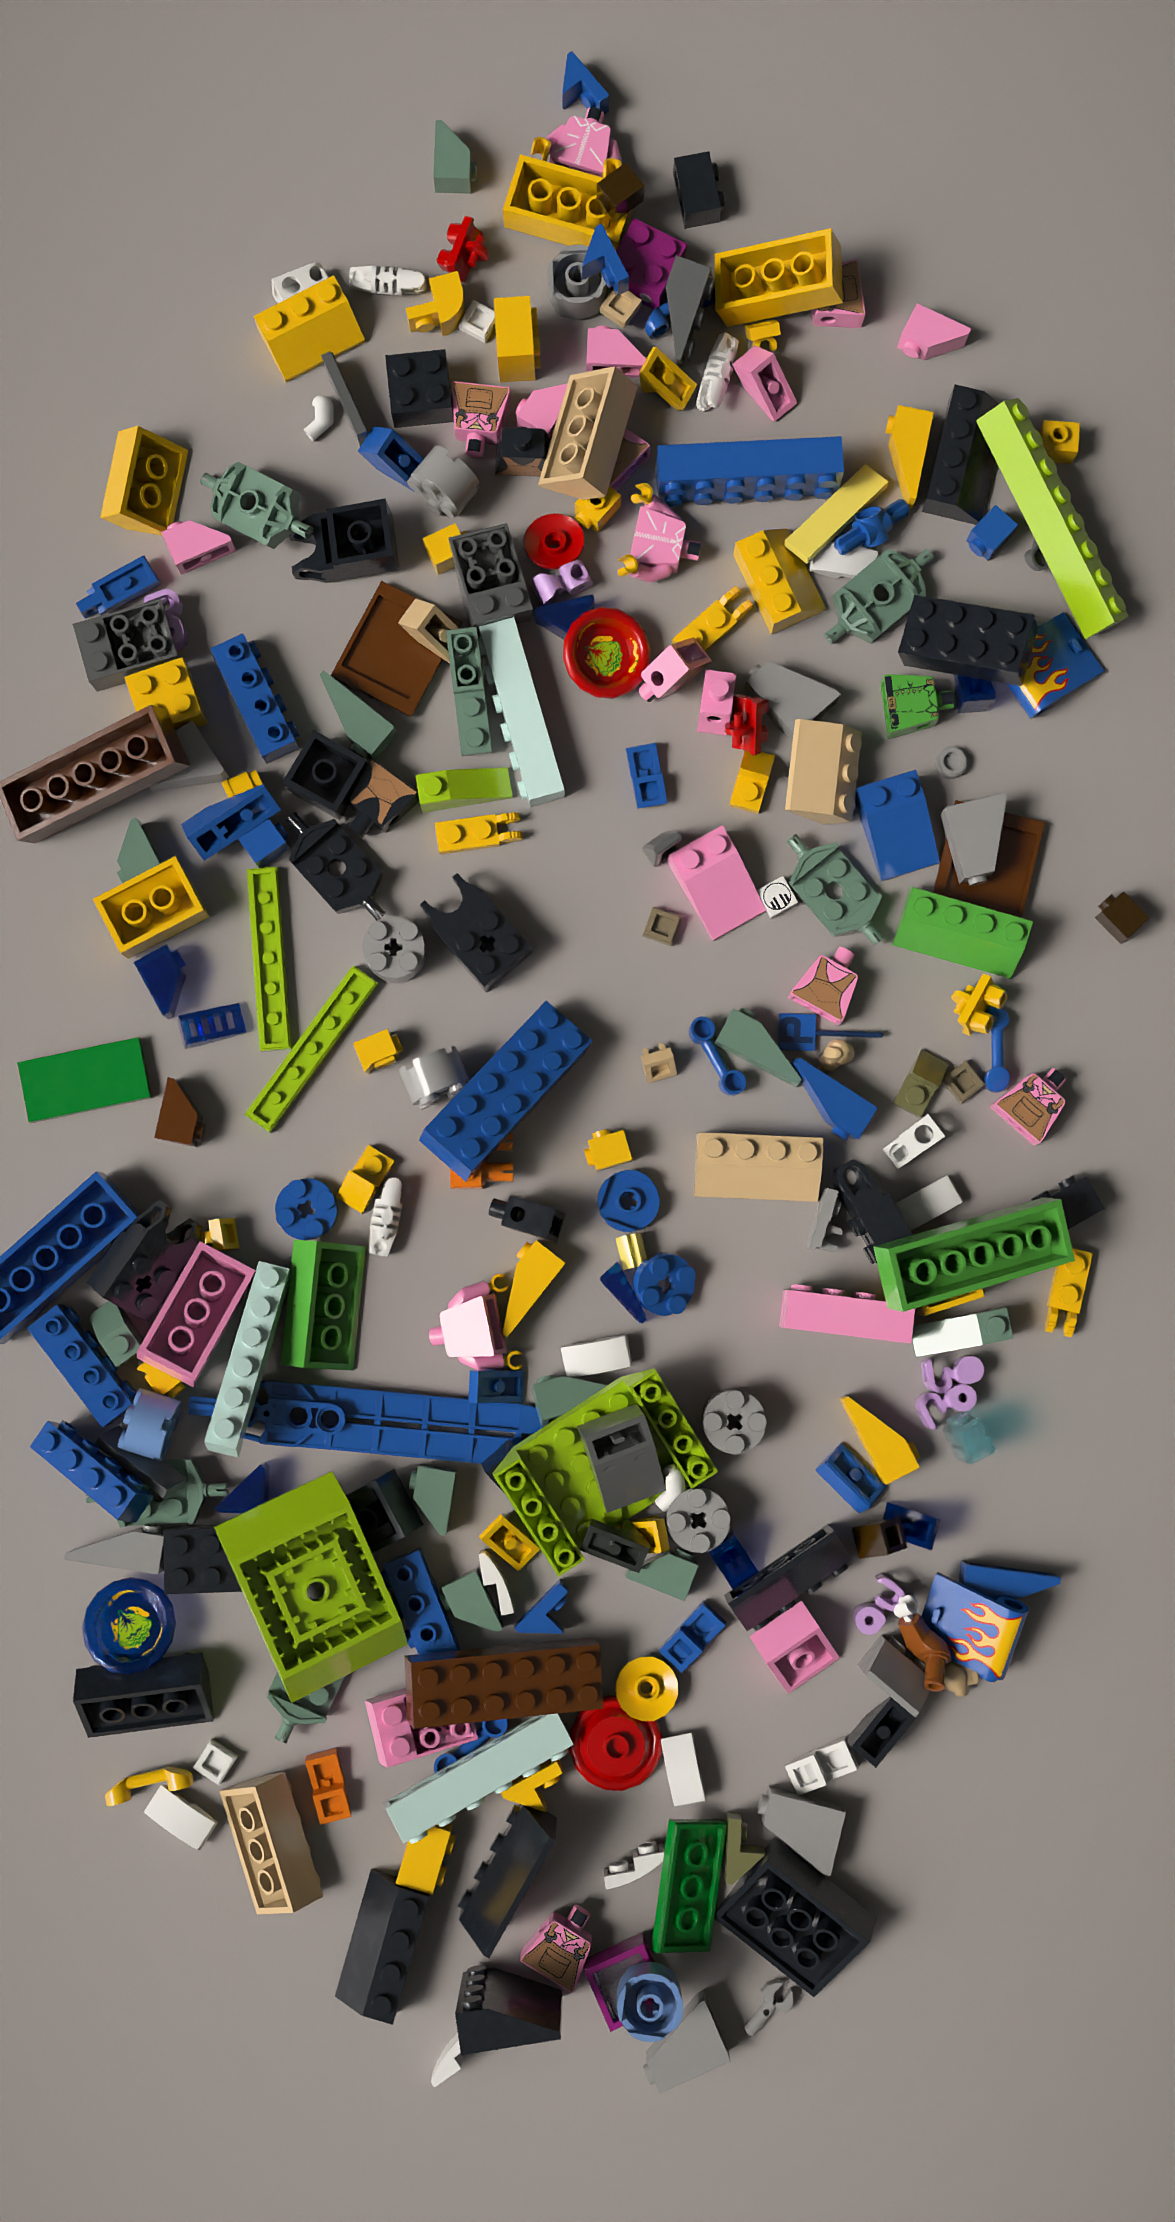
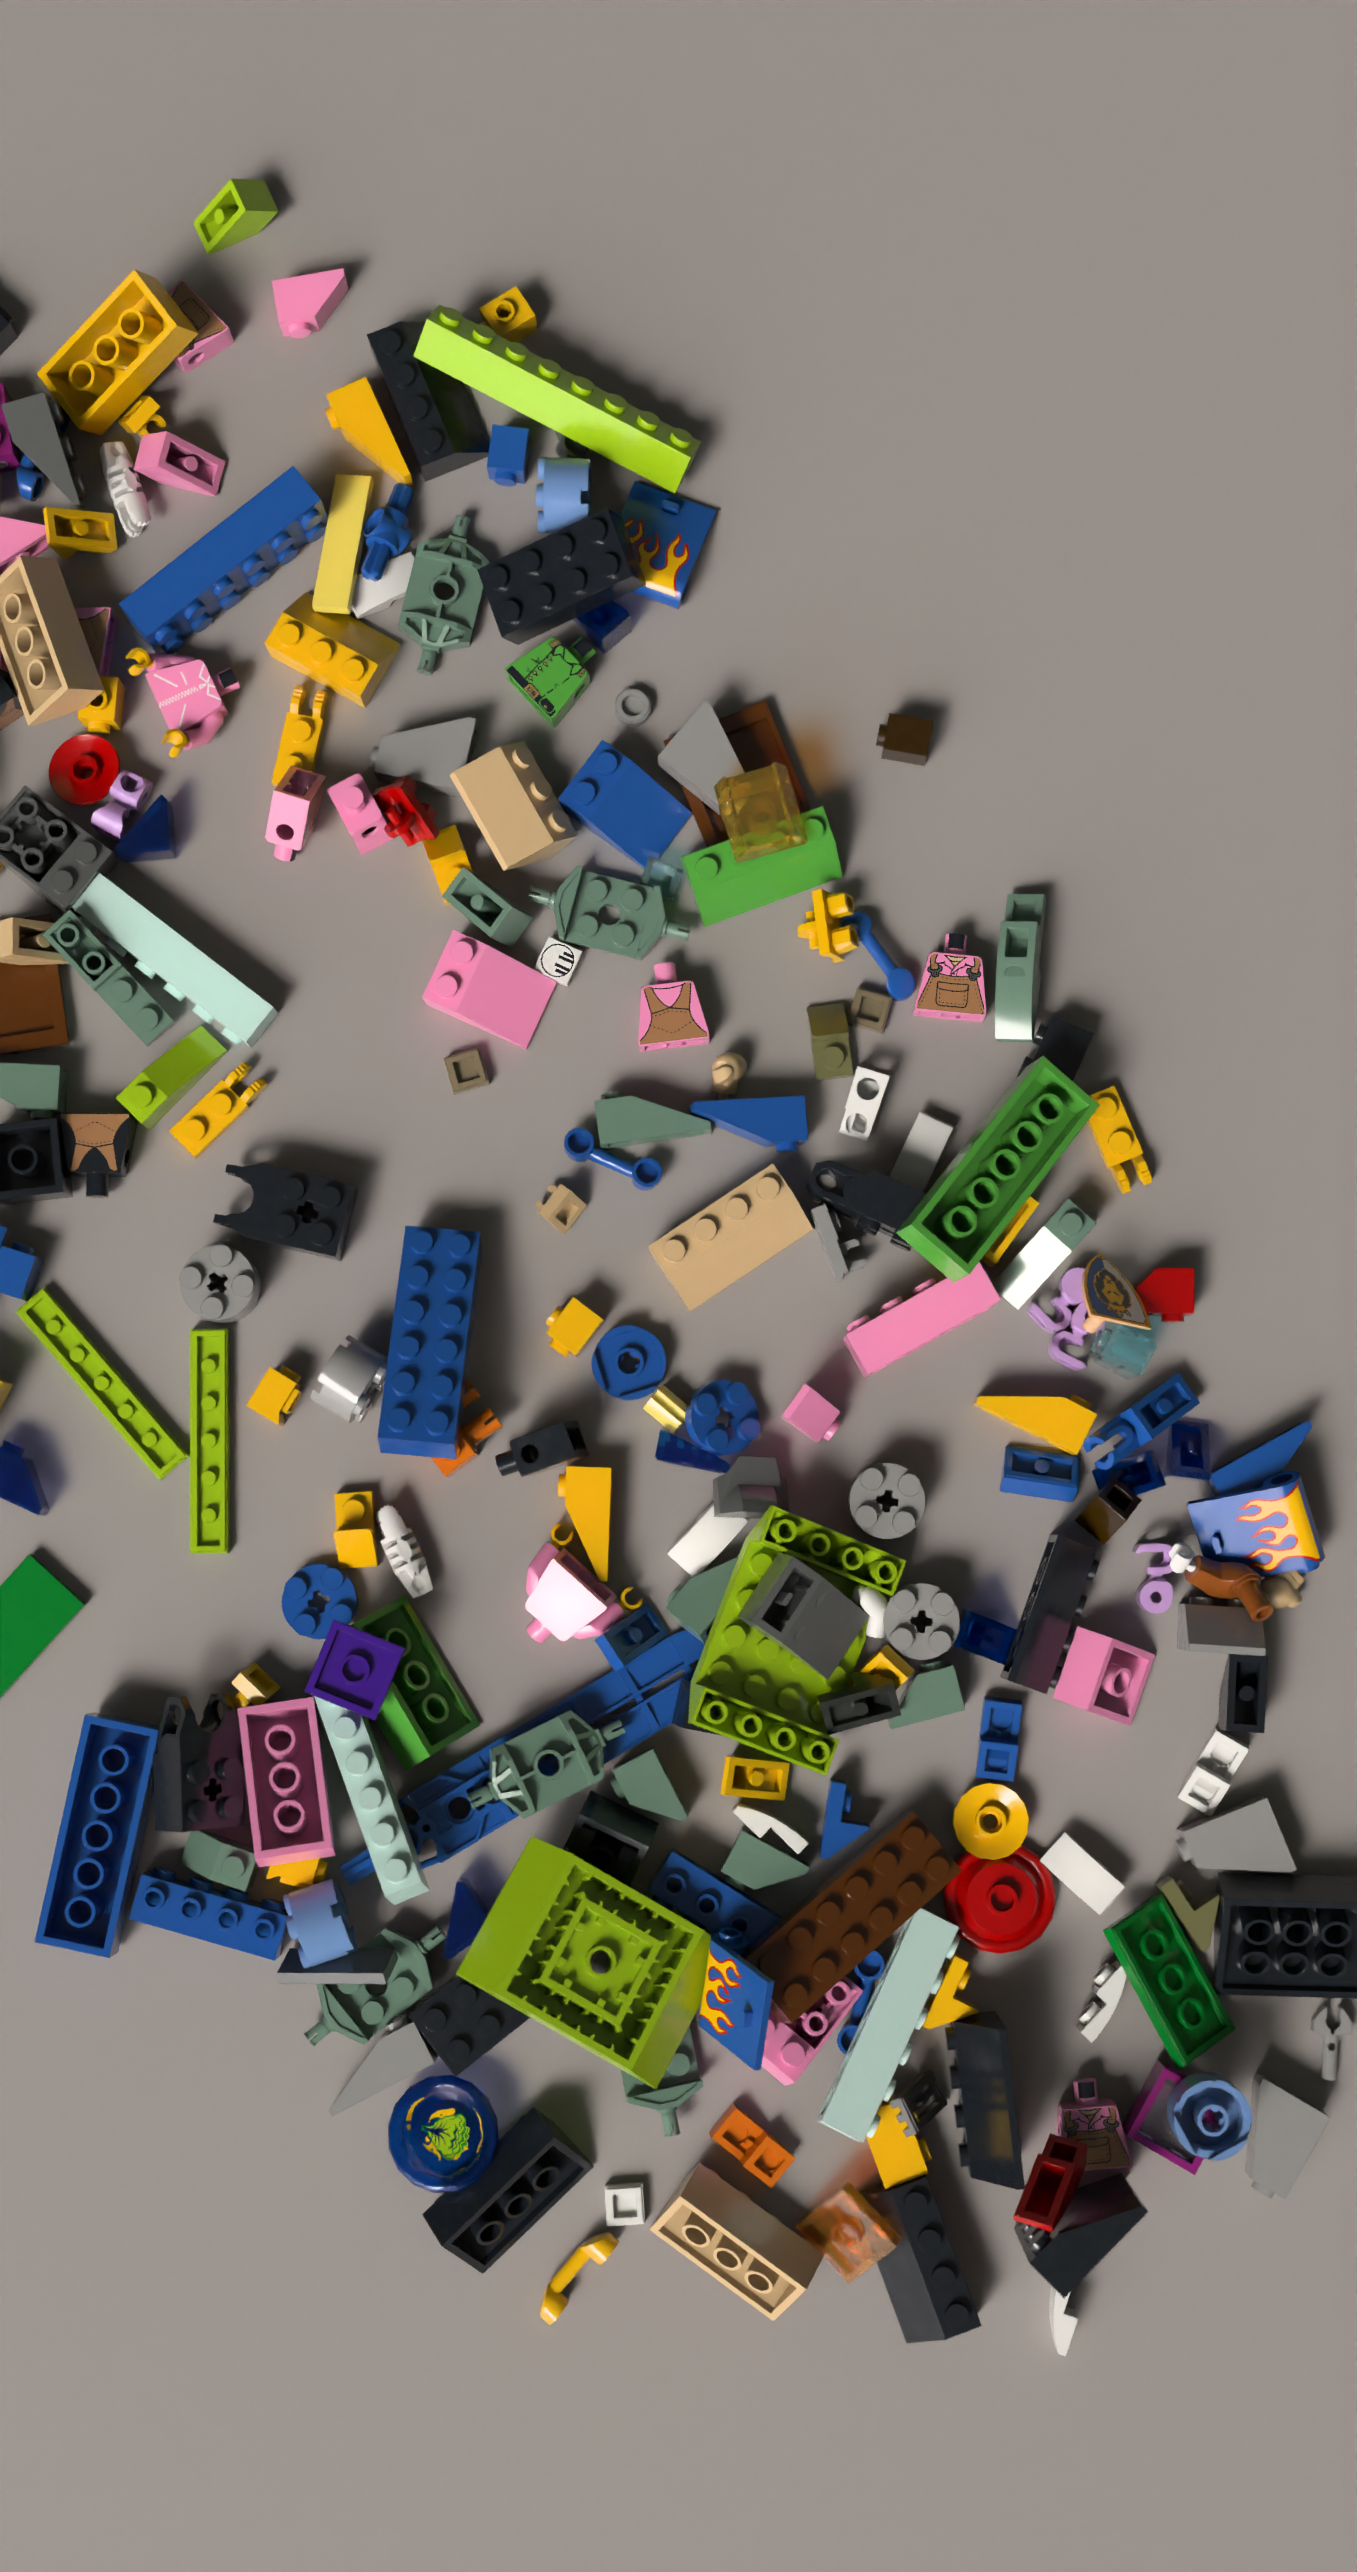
camera: 30 degrees left, 0 degrees up
(92, 1471) = (296, 2010): blue brick -> none
(179, 1117) = (128, 1603): reddish brown slope -> none
(180, 1818) = (630, 2282): white slope -> none
(201, 1038) = (93, 1510): clear blue slope -> none
(295, 1273) = (355, 1669): none -> dark purple plate
(320, 847) = (72, 1241): black plate -> none
(350, 1894) = (848, 2232): none -> clear orange plate
(357, 1413) = (515, 1764): none -> sand green plate
(388, 1683) = (735, 1998): none -> blue door
(450, 1841) = (907, 2109): none -> dark grey tile
(509, 1967) = (1052, 2183): none -> red slope
(606, 652) = (216, 842): red piece -> none
(646, 775) = (343, 934): blue slope -> none
(648, 1345) = (750, 1488): none -> dark grey slope
(661, 847) = (409, 993): dark grey slope -> none
(726, 1326) = (812, 1415): none -> bright pink slope
(755, 827) = (487, 907): none -> sand green slope
(799, 1031) = (675, 1076): piece -> none
(889, 889) = (662, 875): none -> clear light blue slope
(924, 241) = (235, 214): none -> lime slope
(947, 1494) = (1143, 1420): none -> blue plate
(962, 1537) = (1188, 1451): none -> clear blue slope
(986, 1396) = (1110, 1297): none -> shield
(987, 895) = (760, 812): none -> clear yellow slope
(1011, 584) = (564, 492): none -> medium blue brick
(1022, 1417) = (1168, 1293): none -> red slope
(1086, 1126) = (1018, 968): none -> sand green slope

